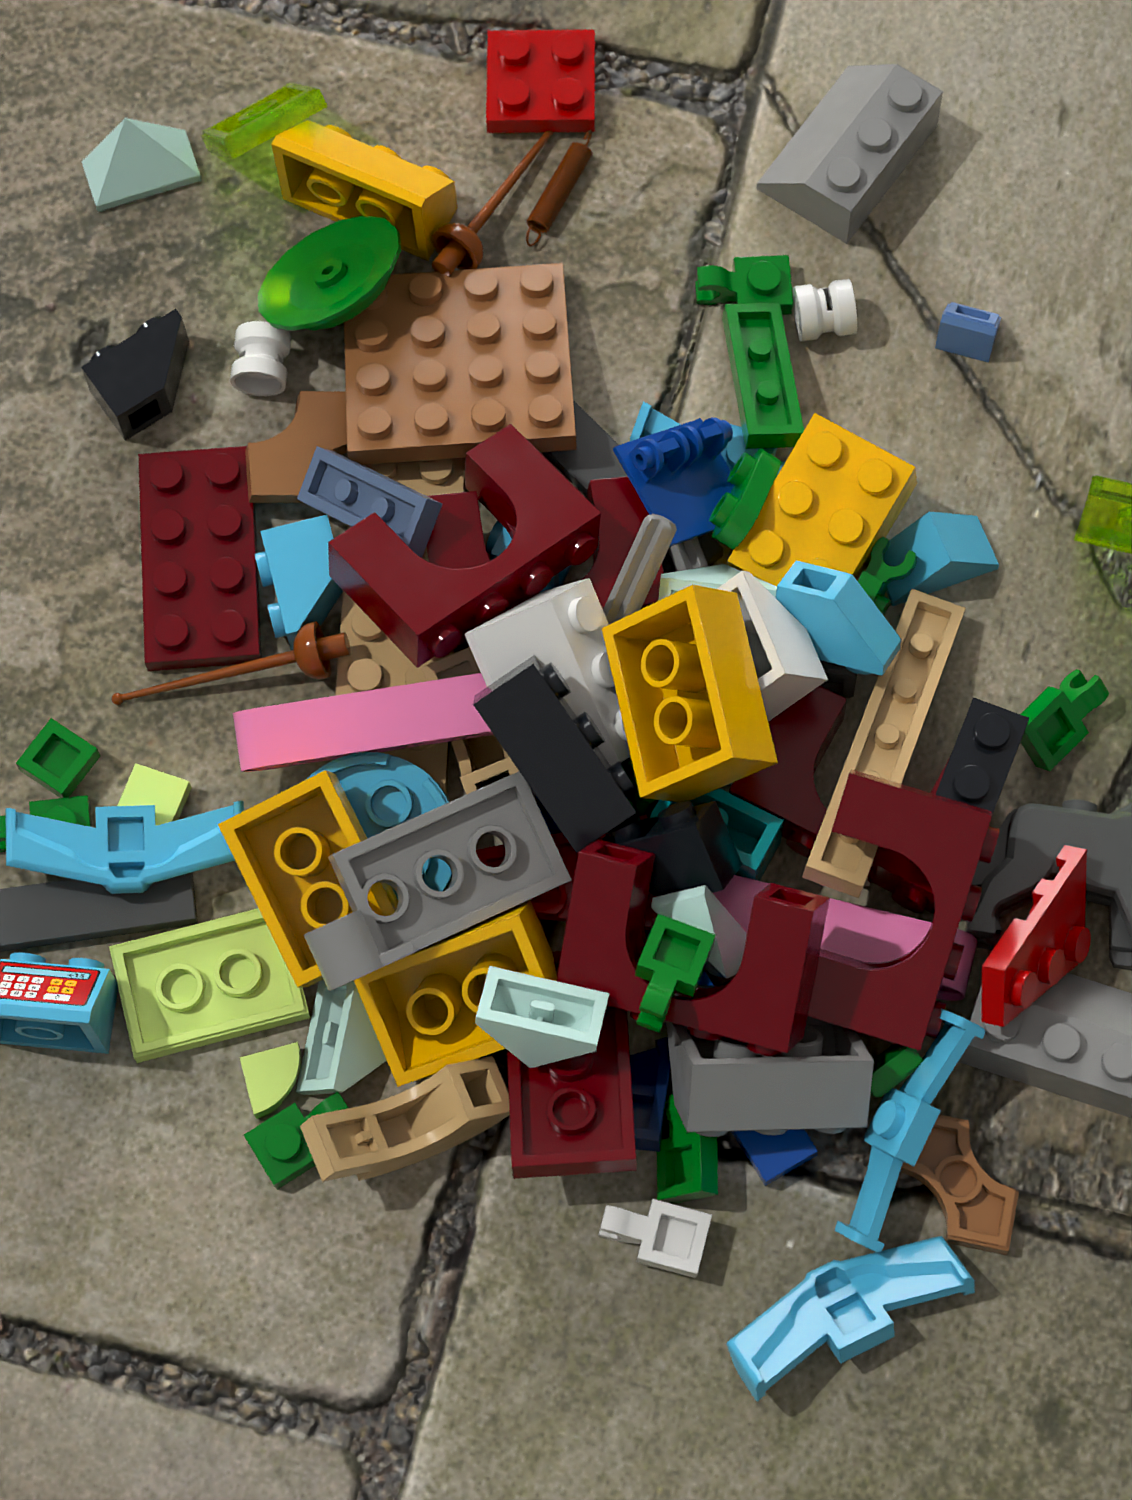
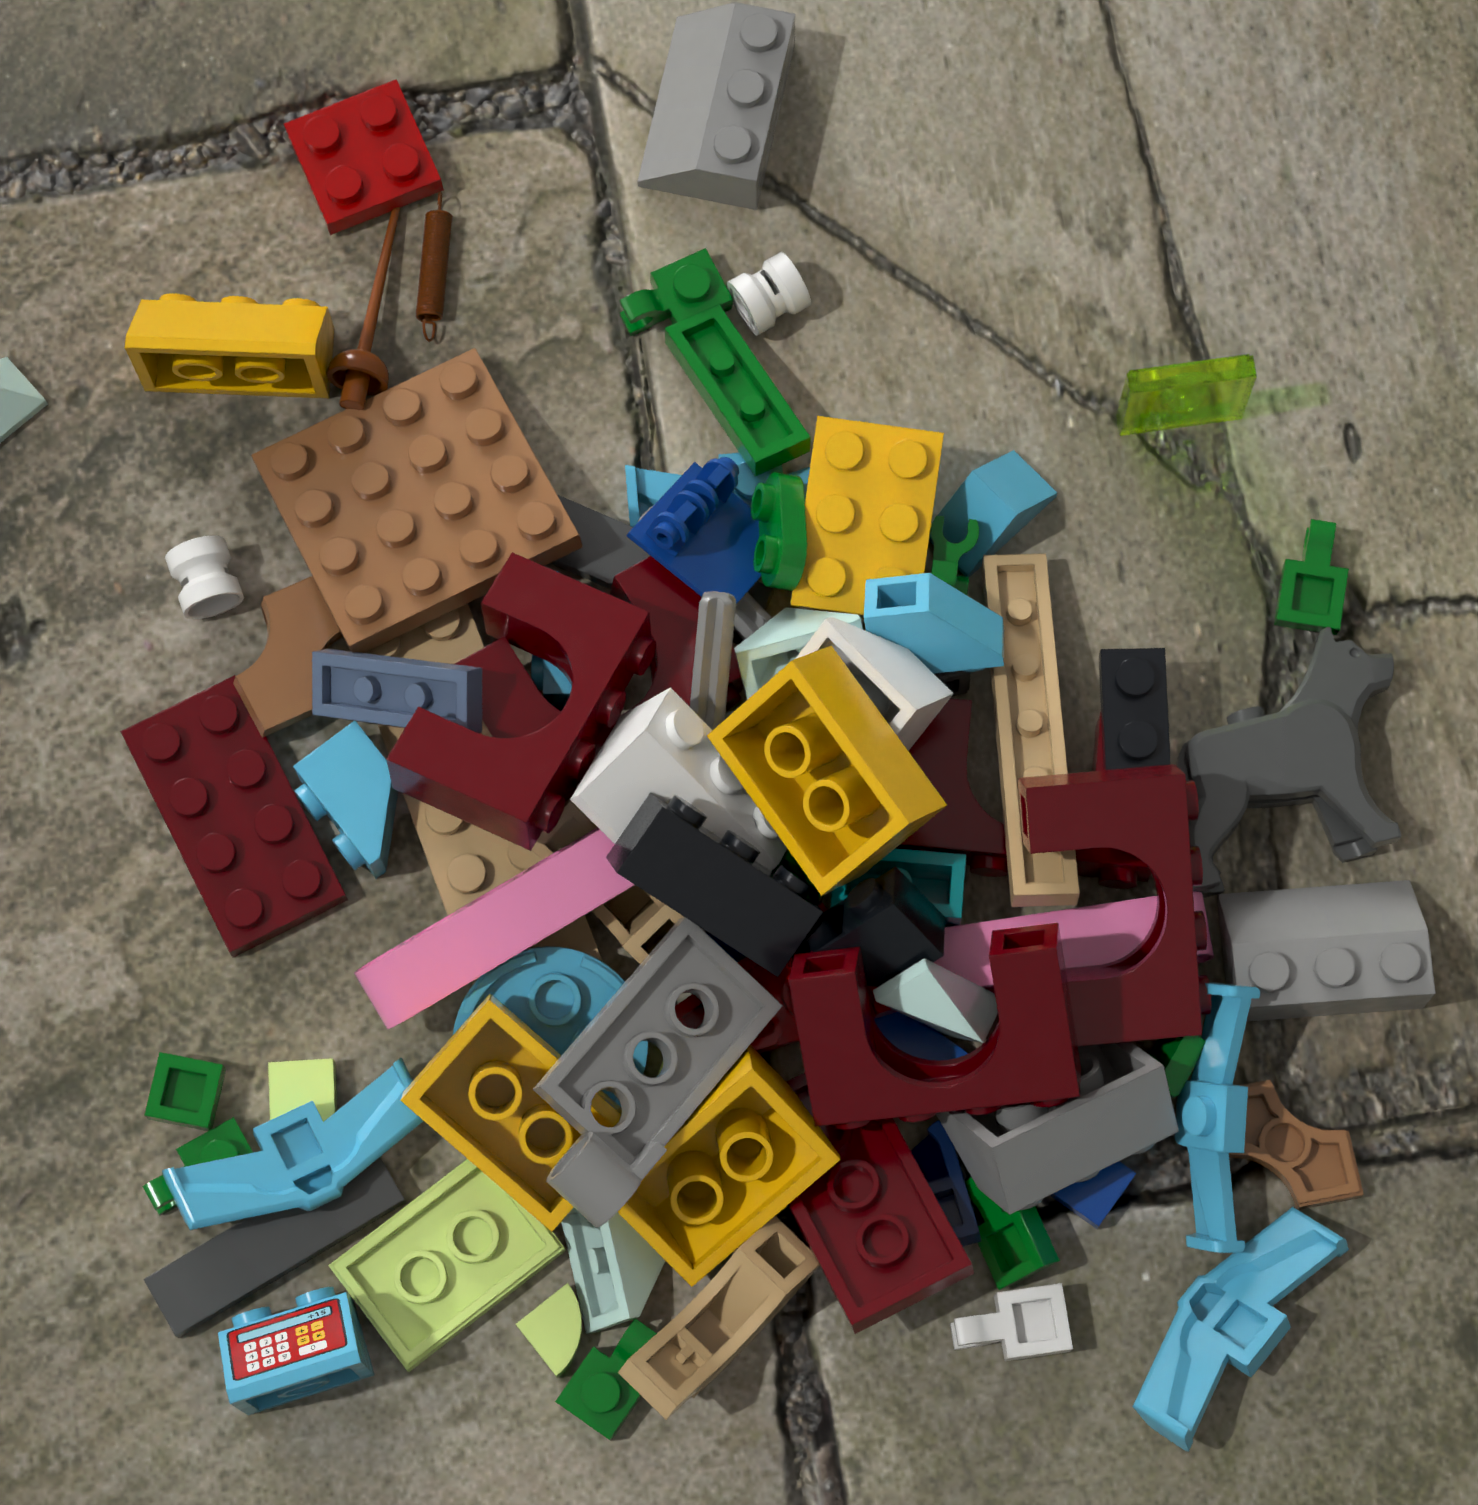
camera: 25 degrees left, 5 degrees up
(140, 375) = (84, 647): black slope -> none
(263, 120) = (93, 318): clear neon green tile -> none
(310, 652) = (399, 871): dark orange sword -> none
(330, 274) = (239, 458): green piece -> none
(540, 1016) = (816, 1159): light aqua slope -> none
(672, 963) = (927, 1051): green plate -> none
(967, 331) = (922, 256): medium blue slope -> none
(1043, 947) = (1276, 880): red wing -> none
(1057, 718) = (1186, 628): green plate -> none

